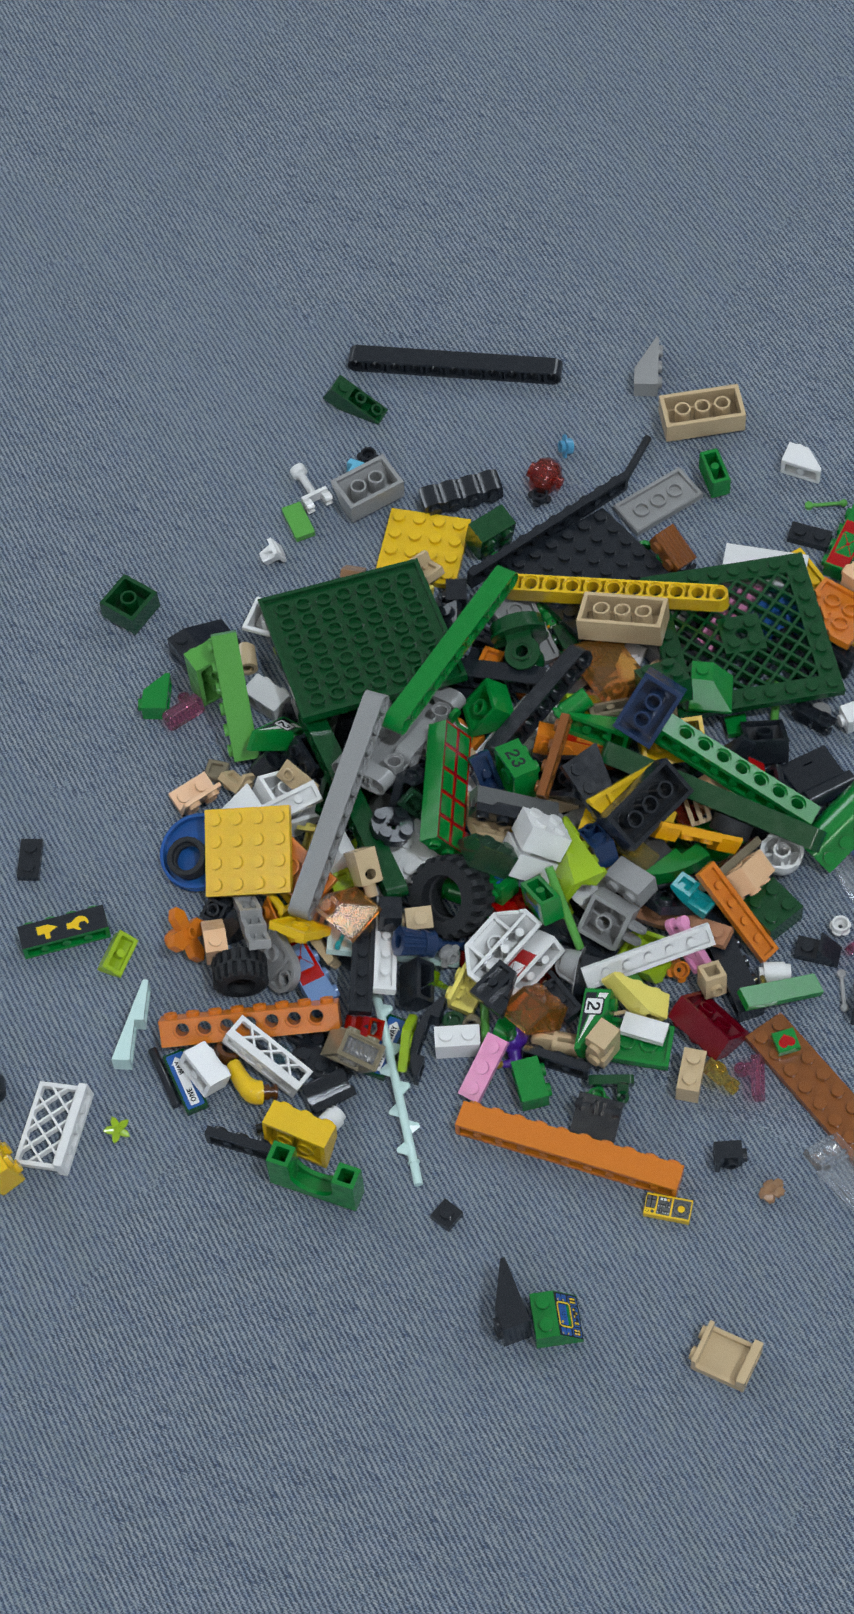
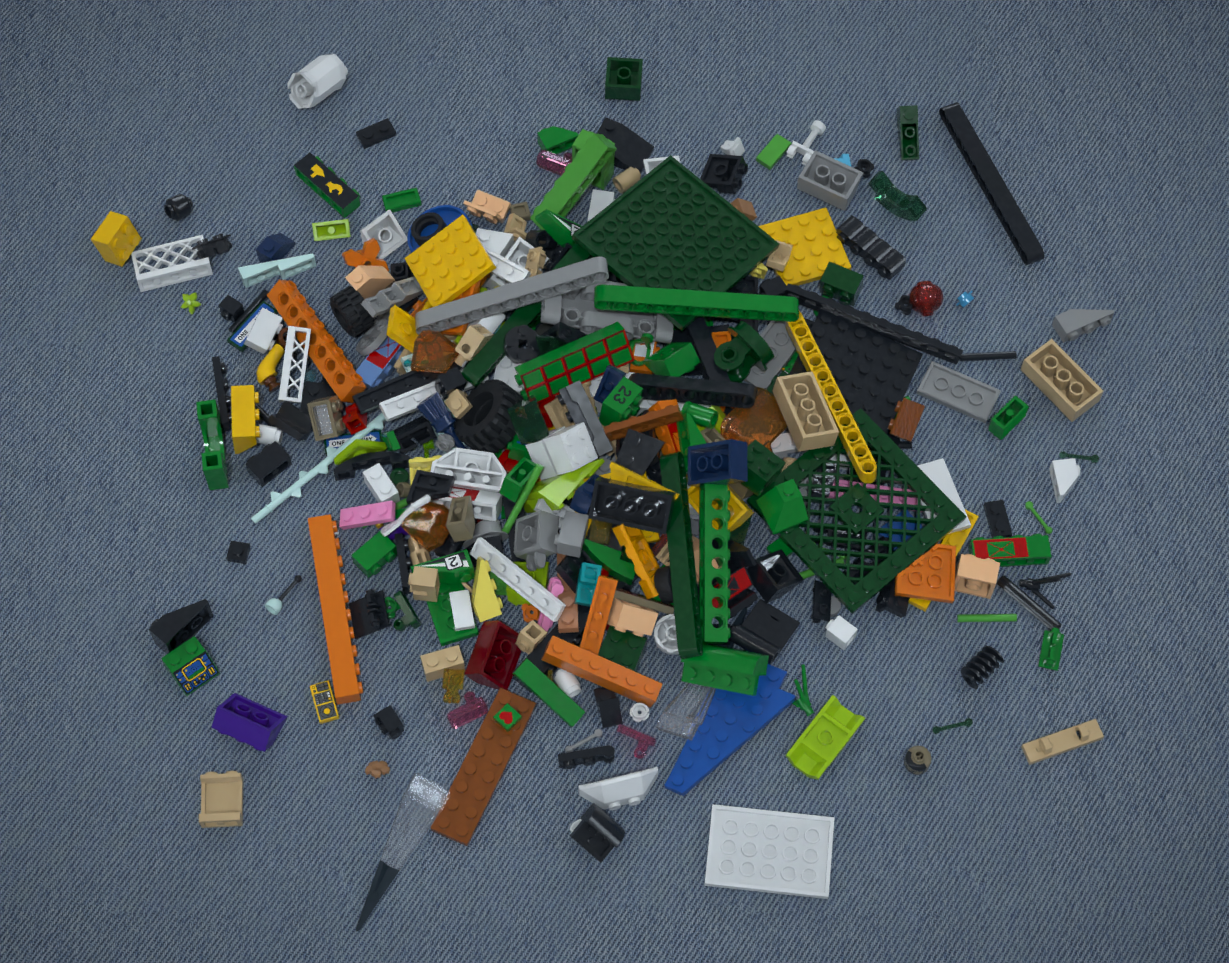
camera: 55 degrees right, 5 degrees up
(65, 1074) = (219, 242): none -> black hinge
(108, 1018) = (274, 248): none -> dark blue slope
(128, 872) = (402, 200): none -> green tile
(153, 1091) = (230, 308): none -> black plate
(159, 901) = (386, 232): none -> white slope
(296, 570) = (724, 172): none -> black plate
(363, 1137) = (268, 463): none -> black brick
(414, 1003) = (390, 440): none -> green tile
(426, 447) = (891, 198): none -> clear green arch
(517, 1046) = (413, 507): none -> white piece
(531, 1205) = (275, 605): none -> hinge
(550, 975) = (461, 519): none -> dark tan slope
(653, 1289) = (248, 722): none -> dark purple slope
(786, 933) = (601, 671): none -> orange brick
(792, 432) = (1094, 458): none -> clear green hinge

